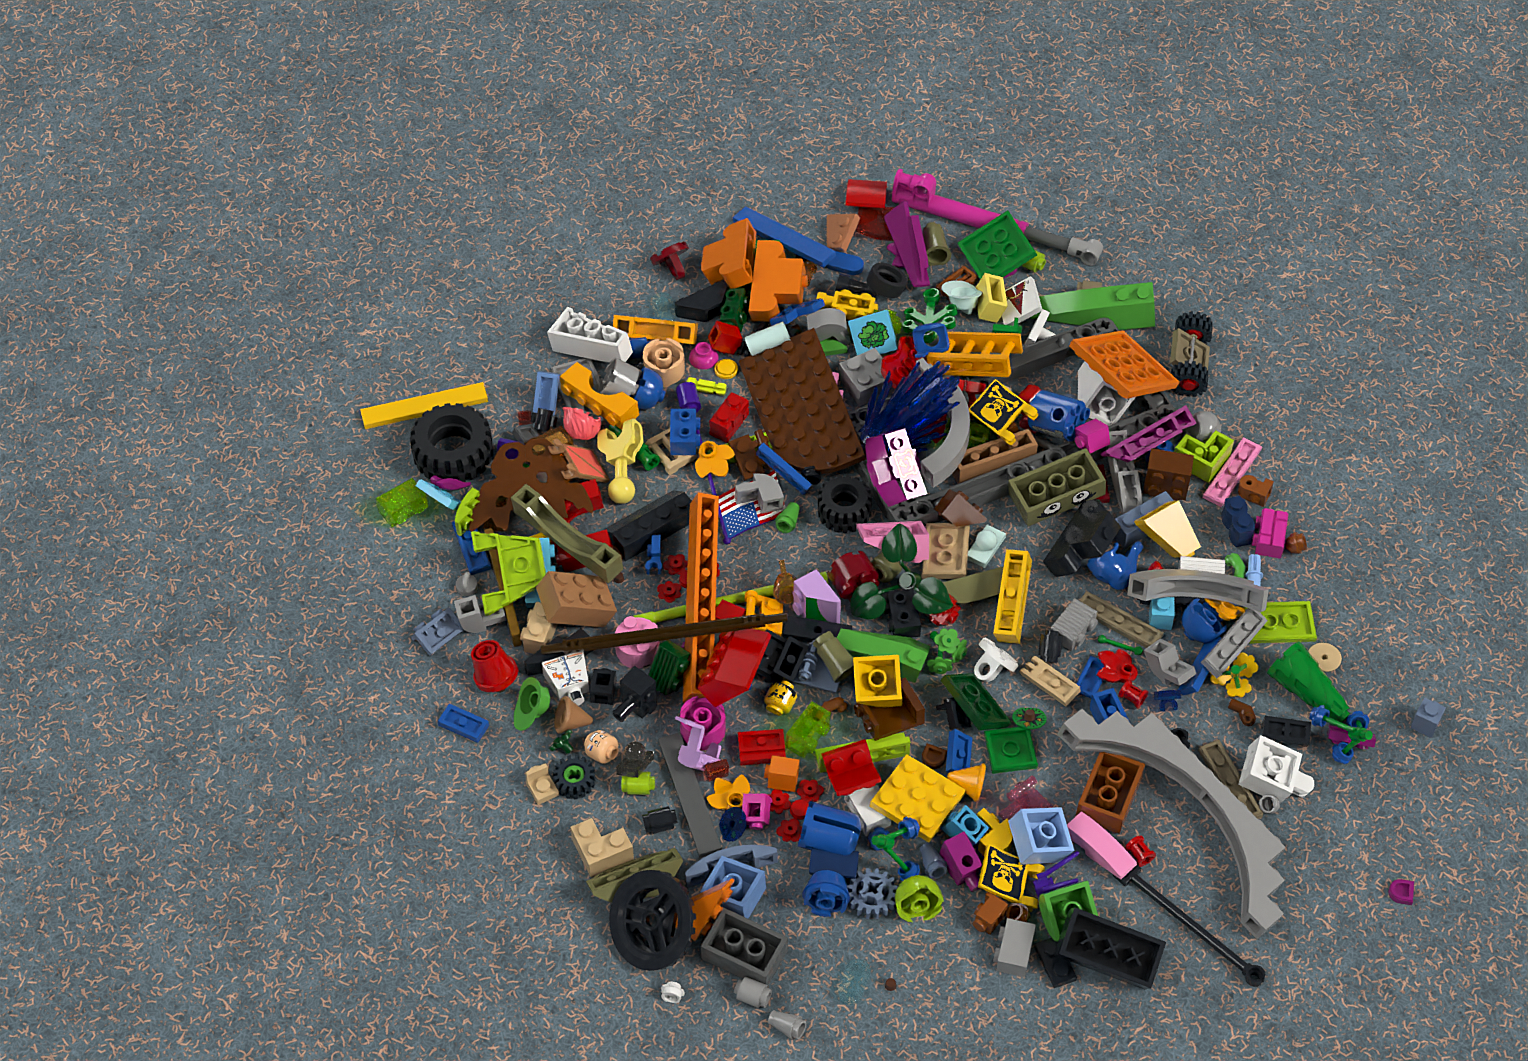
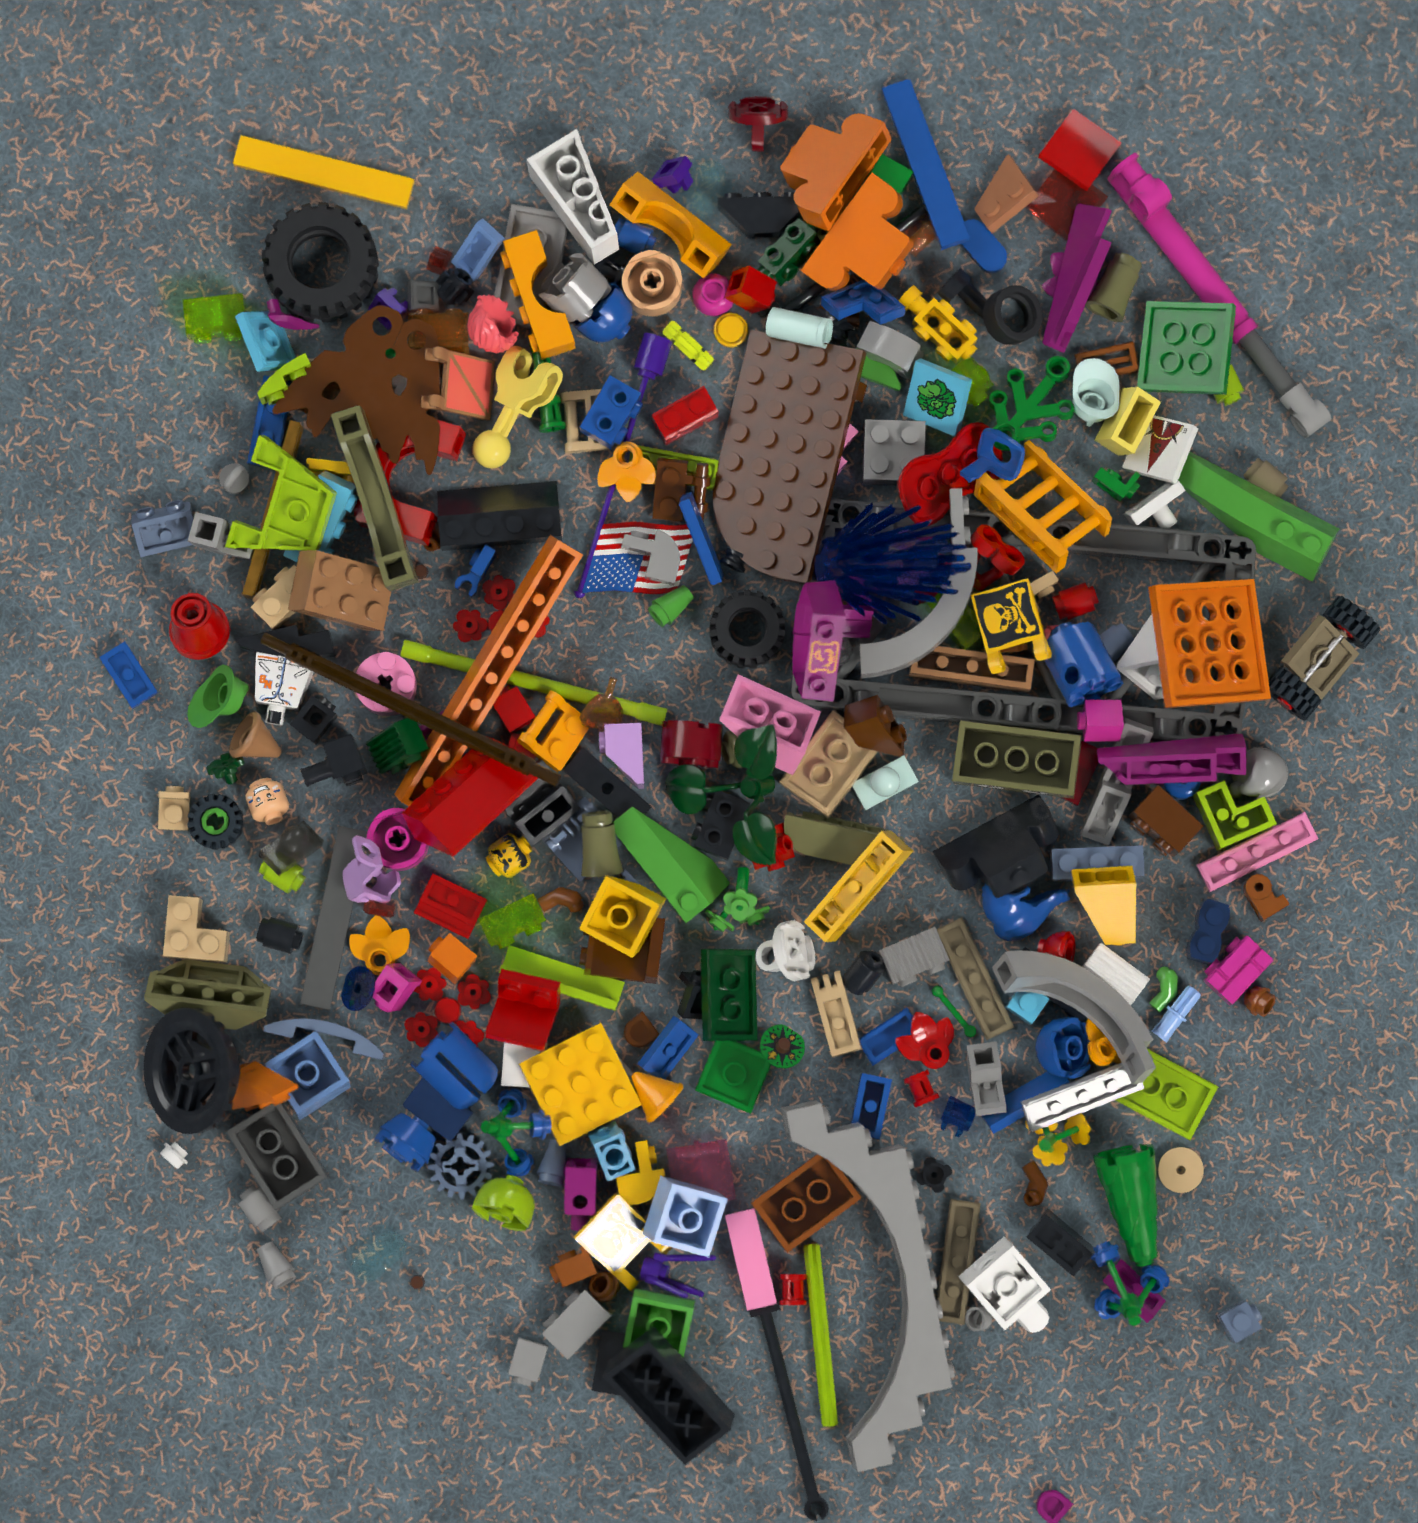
camera: 25 degrees right, 30 degrees up
(640, 304) = (674, 174): none -> dark purple tile
(999, 988) = (527, 1361): none -> light grey brick
(1179, 871) = (820, 1335): none -> lime axle

